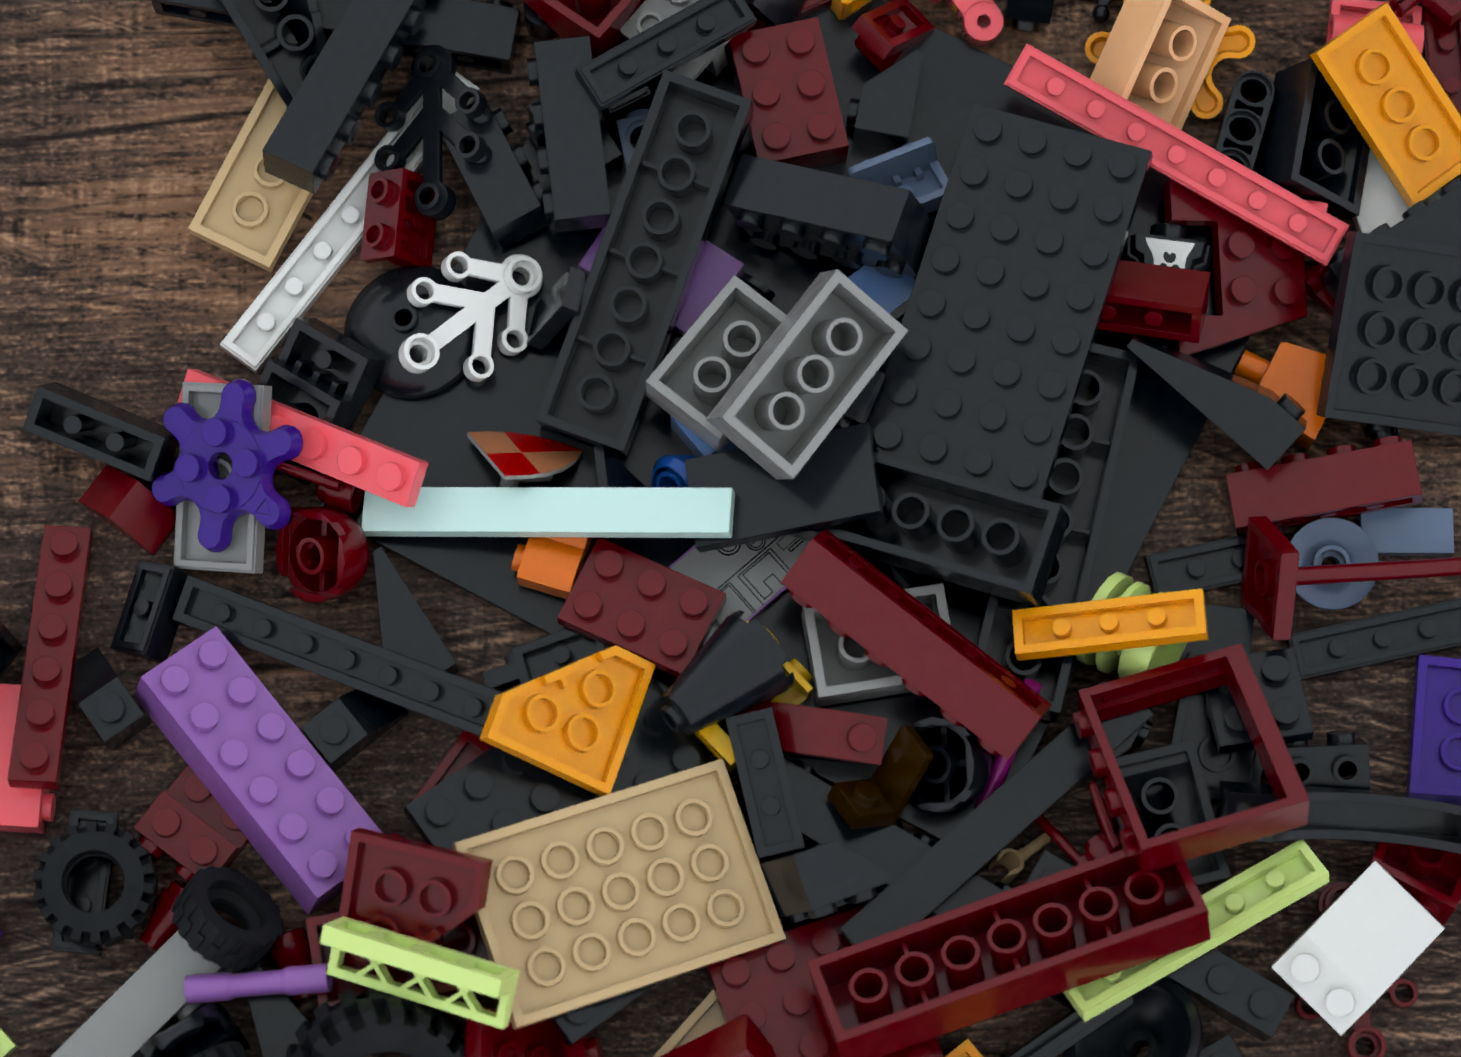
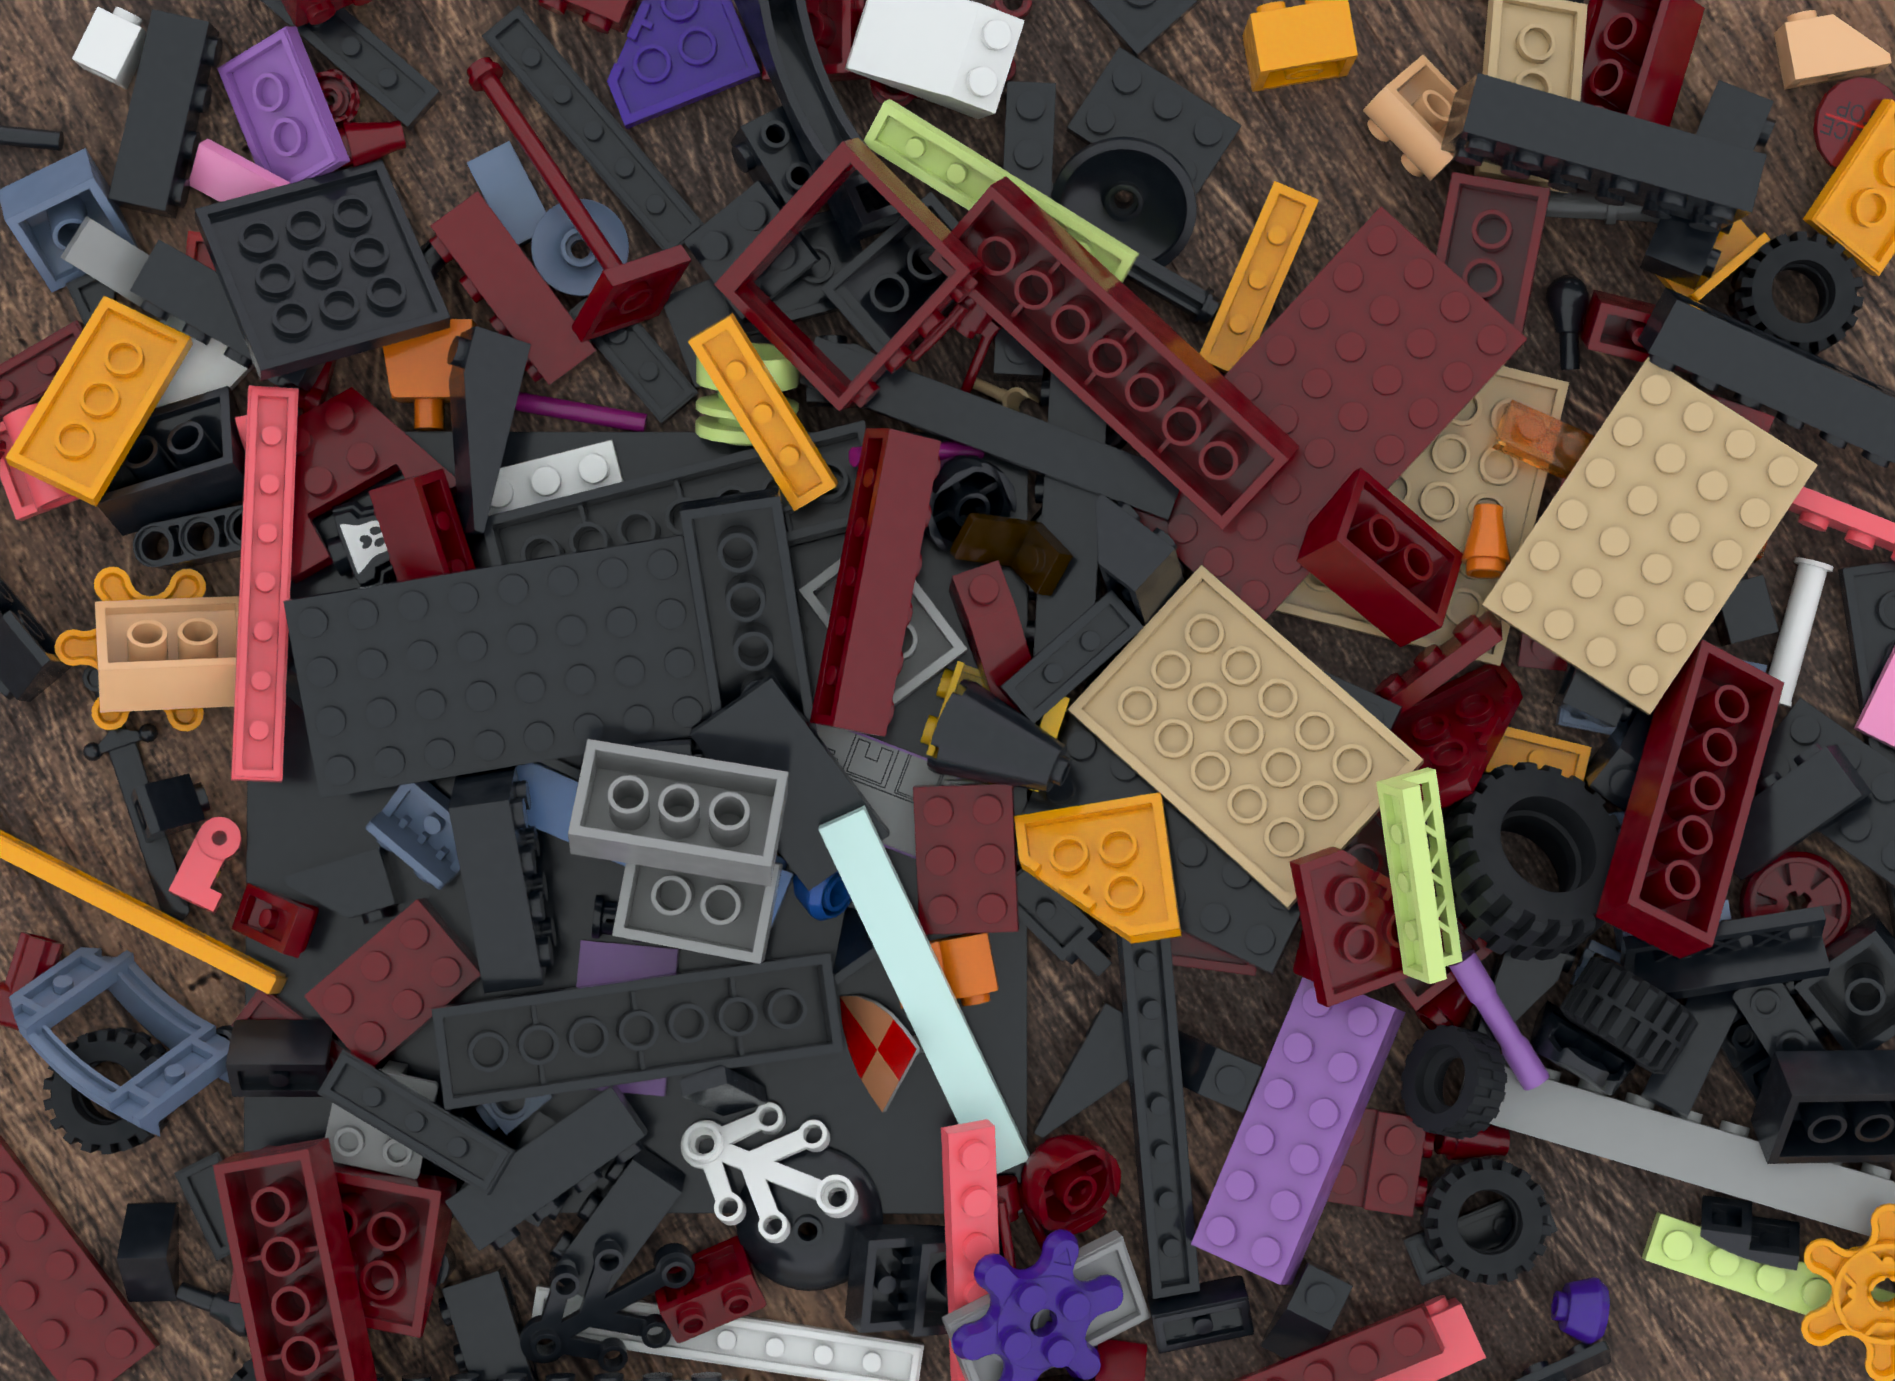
camera: 110 degrees left, 10 degrees up
(1143, 438) = (556, 476): none -> white plate
(1192, 492) = (581, 412): none -> magenta bar

